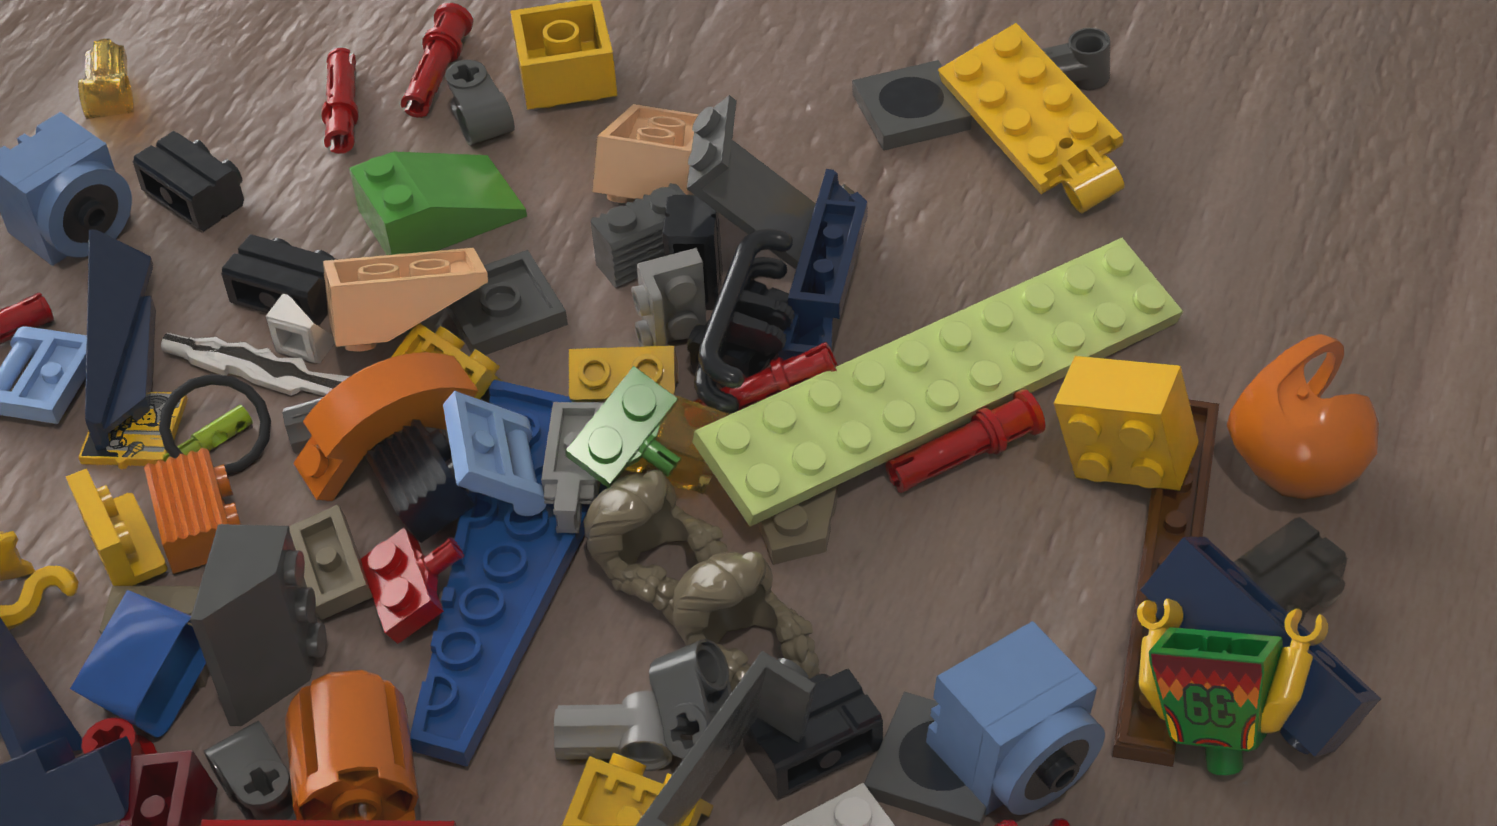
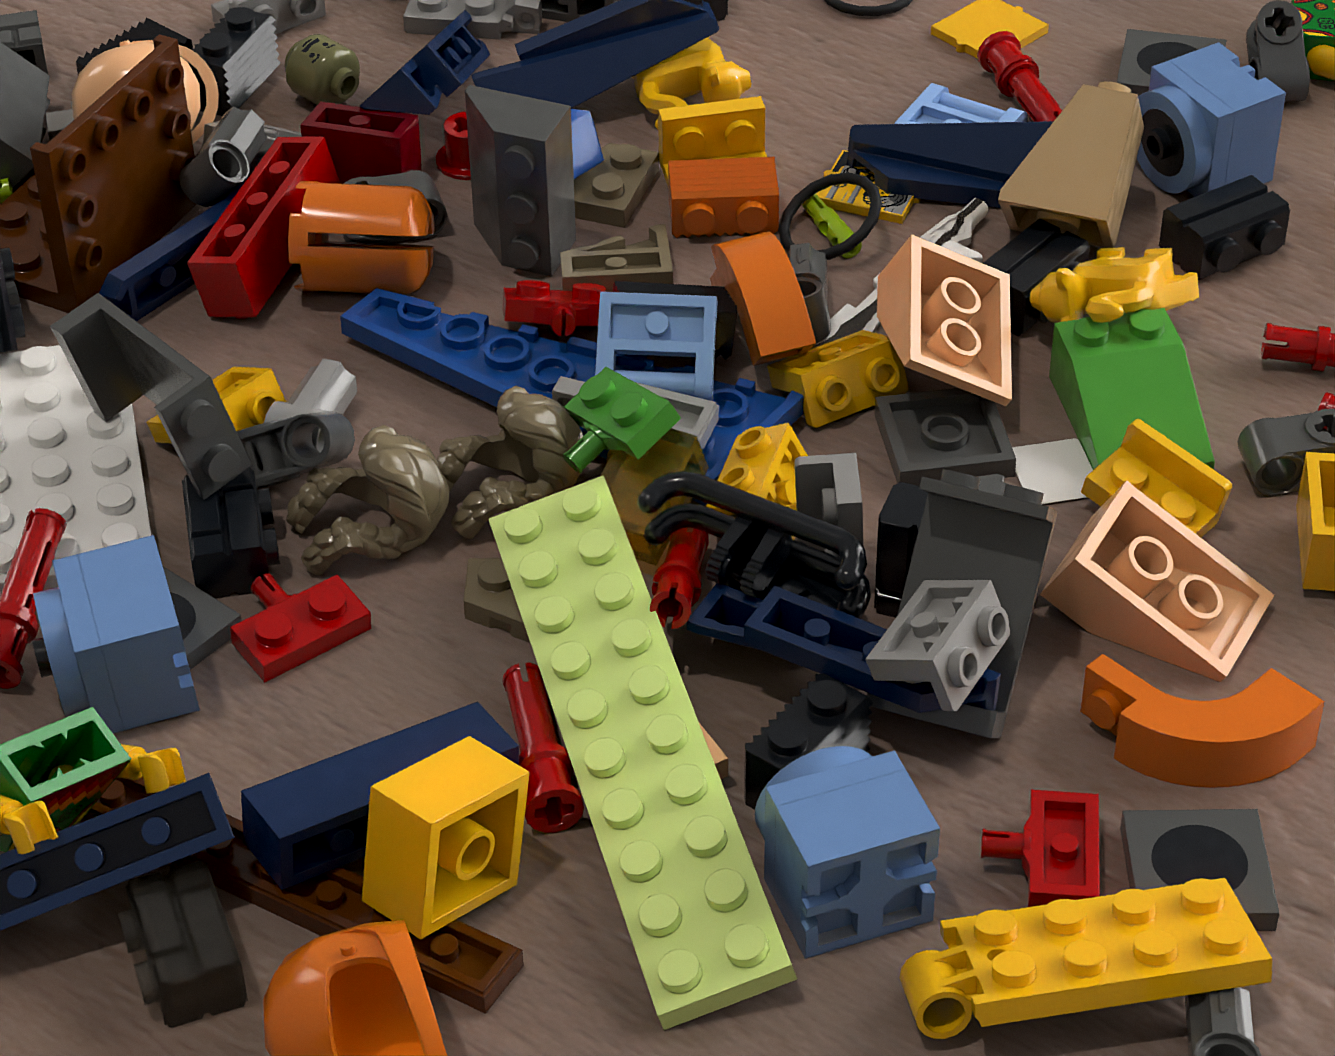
camera: 105 degrees right, 5 degrees down
(167, 232) = (1080, 167): none -> tan slope
(319, 203) = (1114, 286): none -> yellow animal
(522, 234) = (1053, 469): none -> white sticker
(545, 168) = (1165, 475): none -> yellow bracket
(798, 95) = (1202, 741): none -> orange arch
(824, 183) = (943, 638): none -> light grey bracket
(894, 648) = (298, 624): none -> red plate
(908, 284) = (817, 719): none -> black brick
(935, 158) = (1055, 847): none -> red plate
(1009, 223) = (847, 848): none -> medium blue piece
(1079, 499) = (320, 812): none -> dark blue brick

